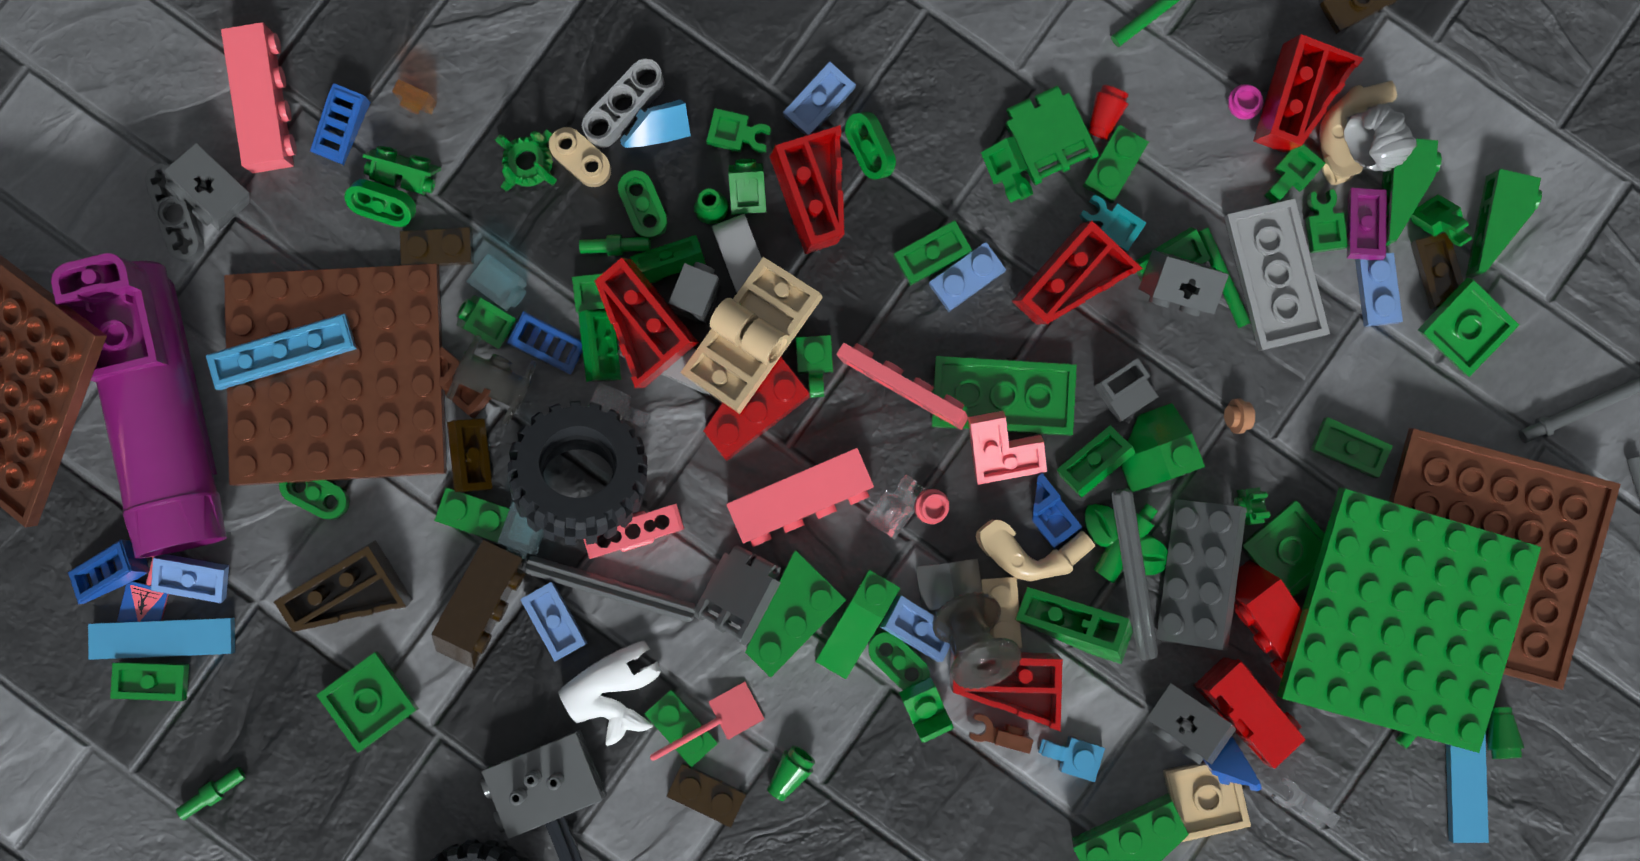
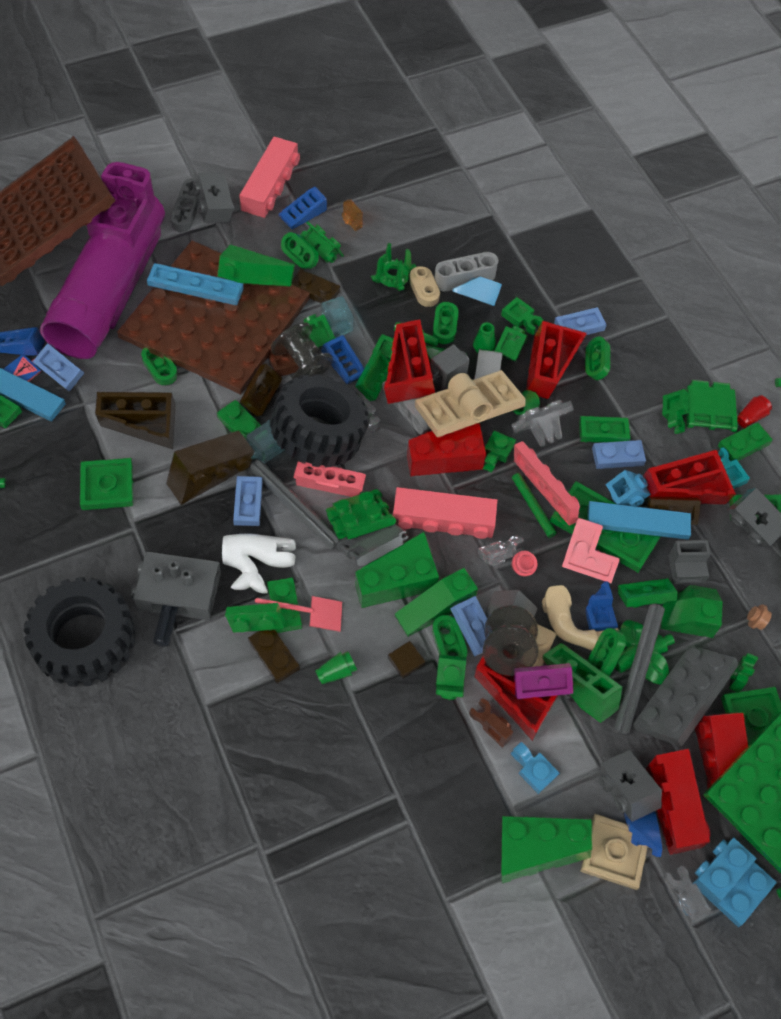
camera: 30 degrees right, 25 degrees down
(340, 286) = (254, 268): none -> green slope
(673, 769) = (255, 617): none -> green plate
(699, 565) = (359, 515): none -> green plate
(817, 272) = (531, 401): none -> green cone
(854, 294) = (544, 421): none -> clear plate
(861, 711) = (406, 659): none -> dark brown tile
(900, 414) = (534, 505): none -> green bar
(1007, 332) = (628, 489): none -> dark azure brick
(1041, 371) = (640, 520): none -> dark azure tile
(1041, 674) = (543, 681): none -> magenta plate
(1074, 327) = (685, 505): none -> dark brown plate
(1088, 576) = (607, 650): none -> green plate
(1346, 758) = (733, 881): none -> dark azure plate

